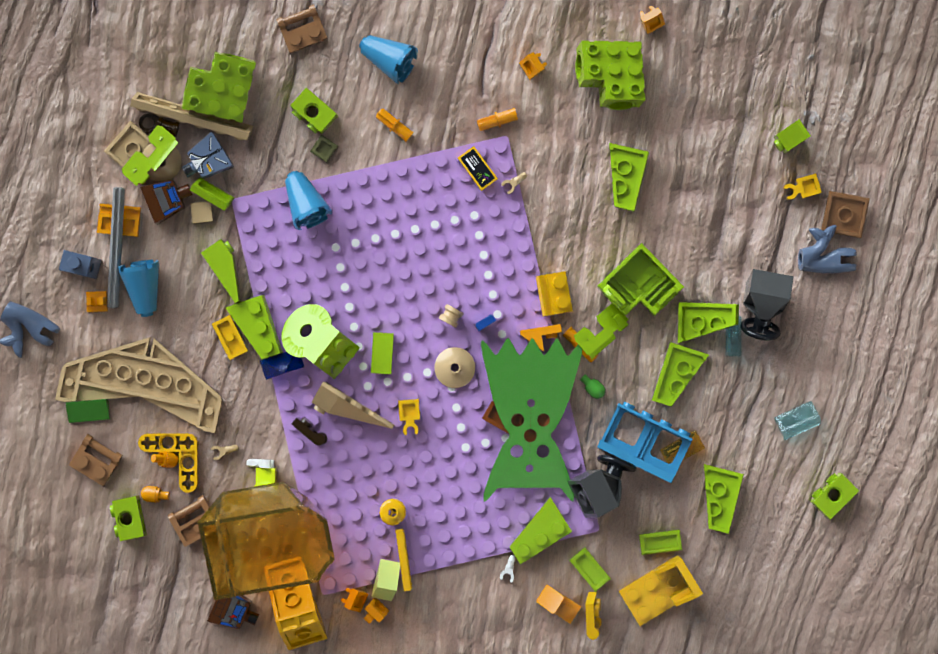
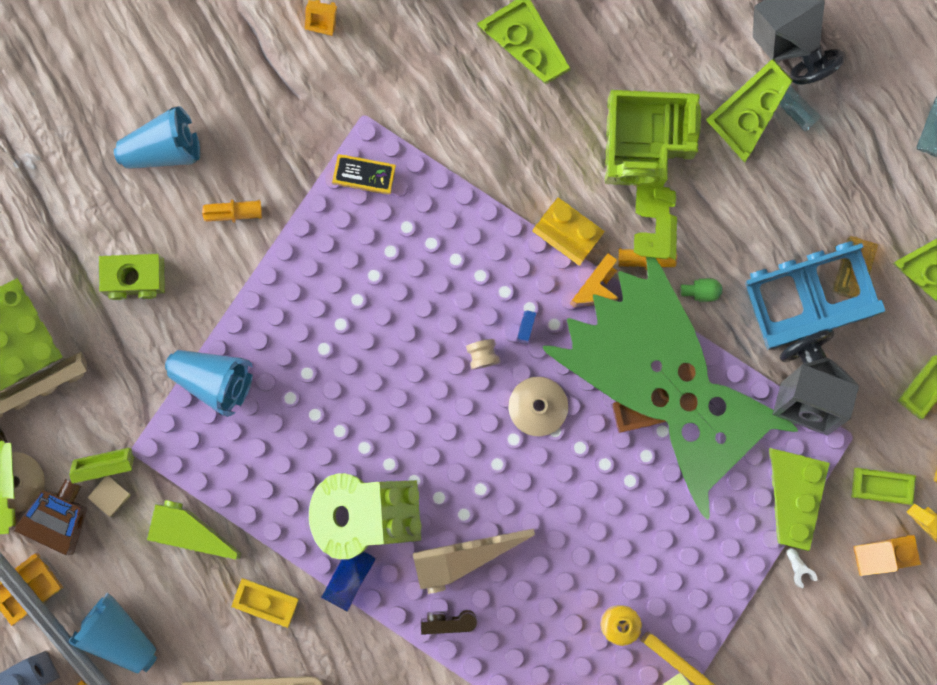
camera: 50 degrees left, 5 degrees down
(207, 158) = (61, 431): sand blue torso -> none
(257, 325) = (282, 561): lime wing -> none
(304, 35) = (49, 205): medium nougat plate -> none
(324, 148) = (180, 305): olive tile -> none
(382, 353) = (446, 463): lime tile -> none
(408, 412) = (535, 500): yellow plate -> none
(497, 119) = (337, 106): light orange axle -> none
(514, 182) = (416, 152): tan piece -> none
(676, 372) = (773, 194): lime wing -> none

